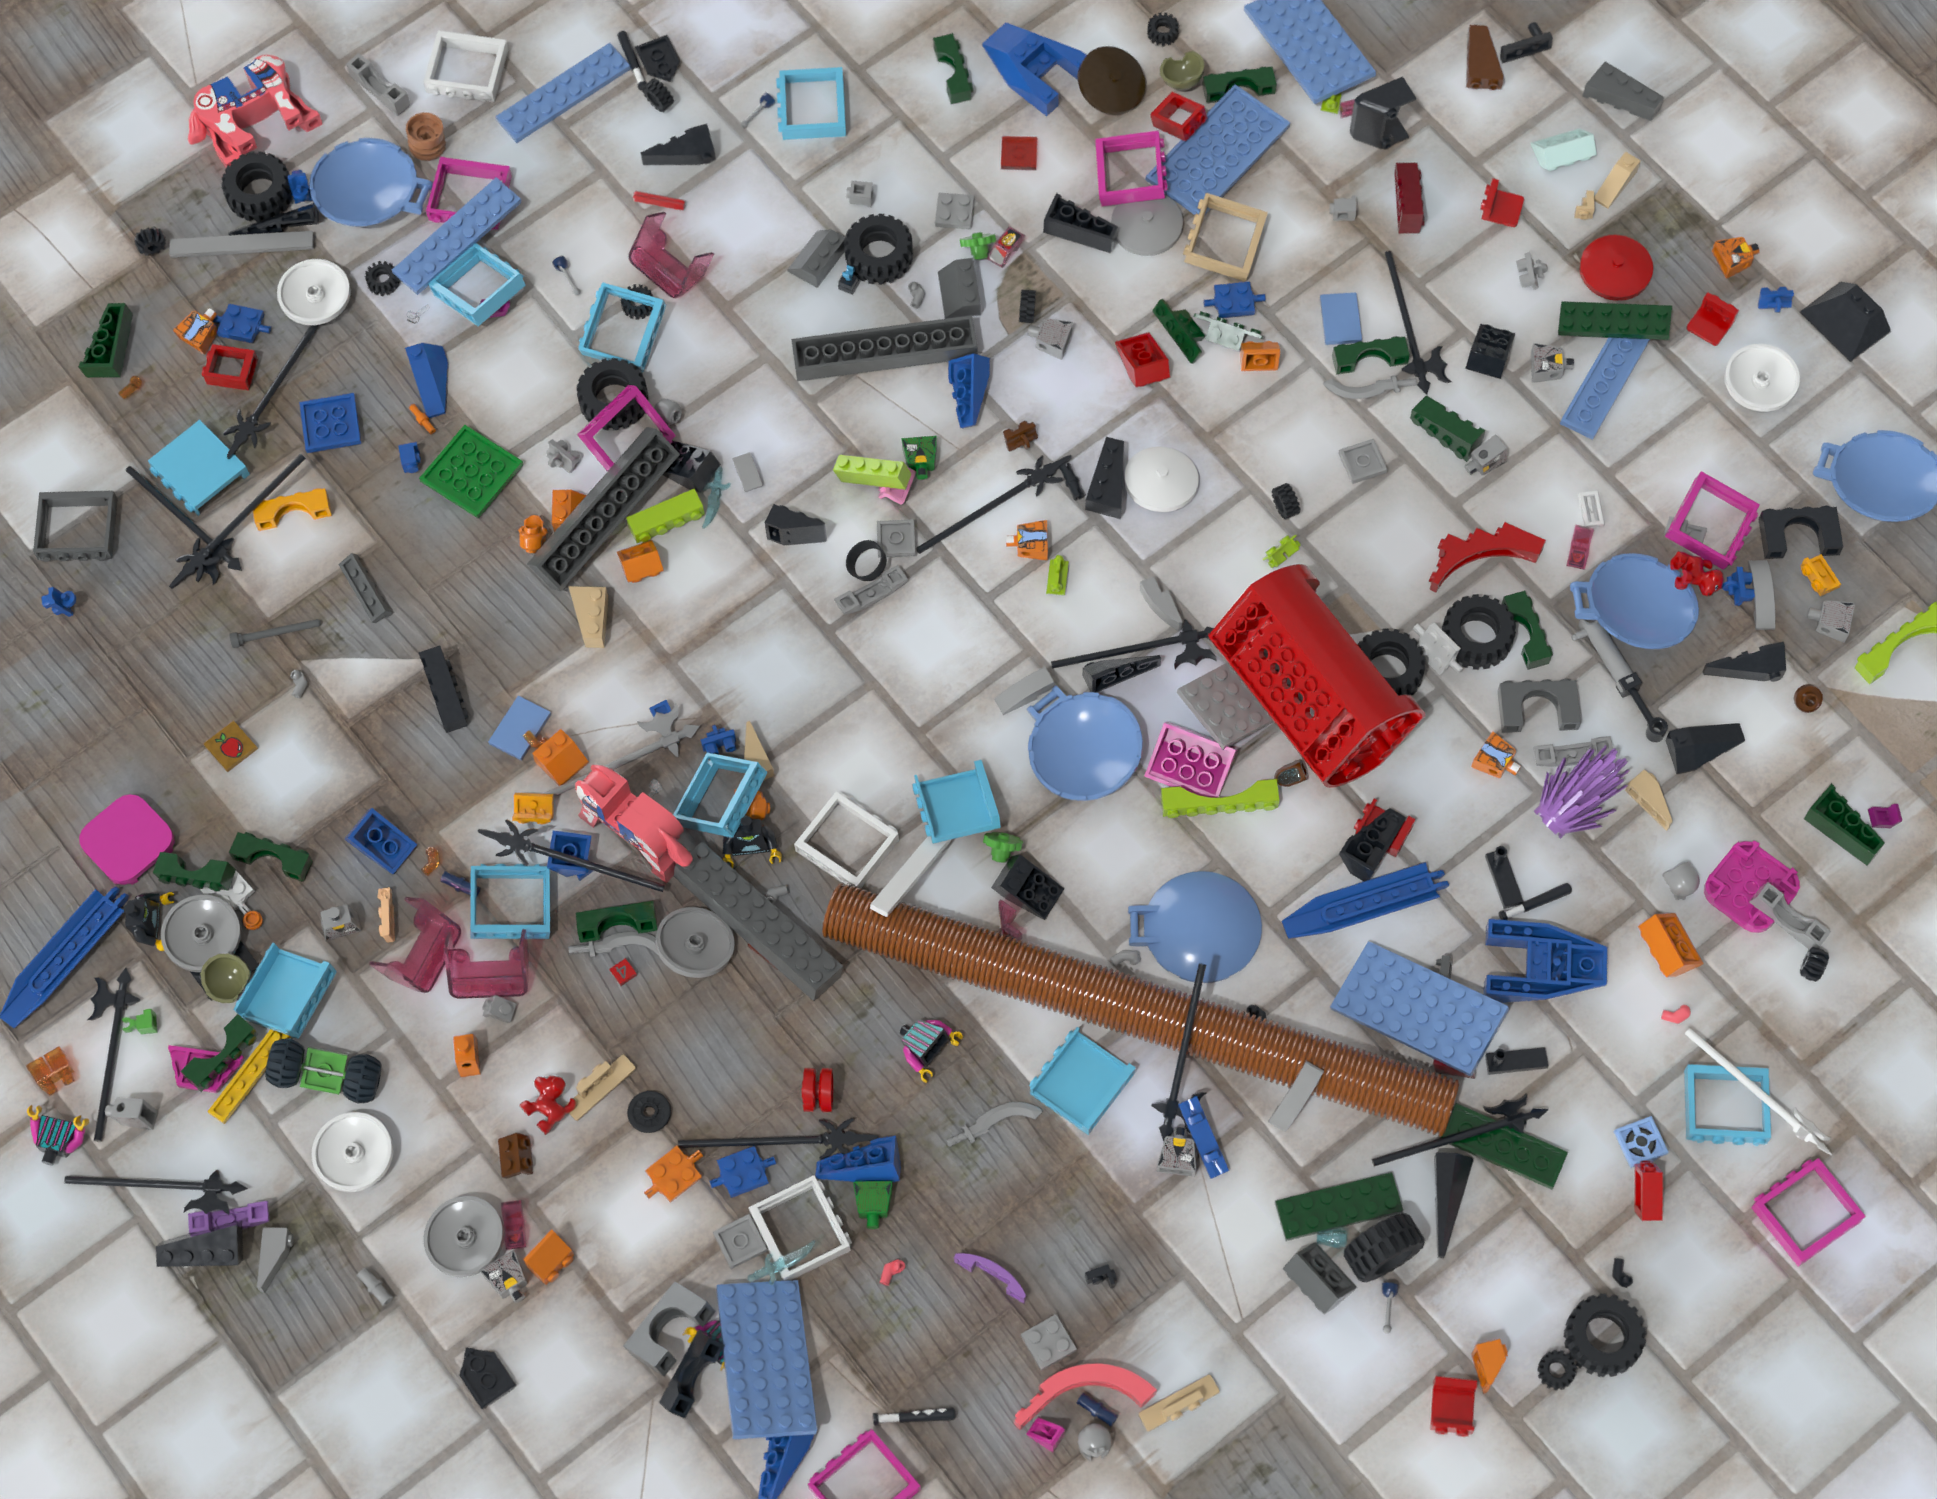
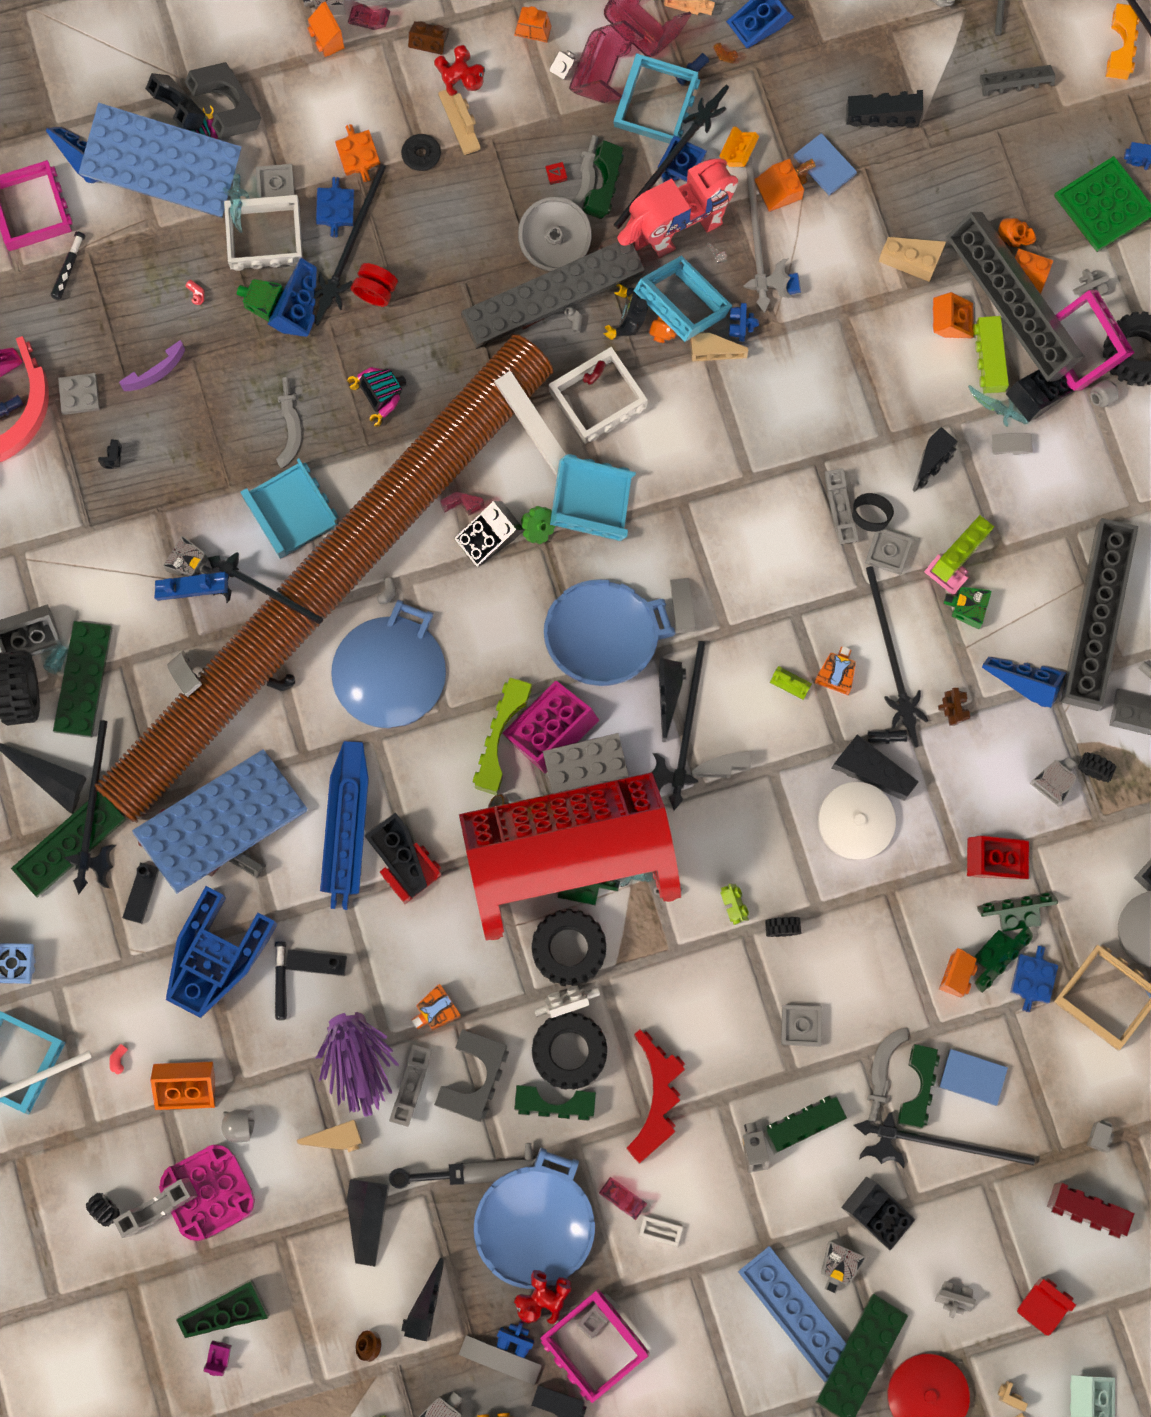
camera: 110 degrees right, 10 degrees up
(831, 844) = (597, 372): none -> dark red arm

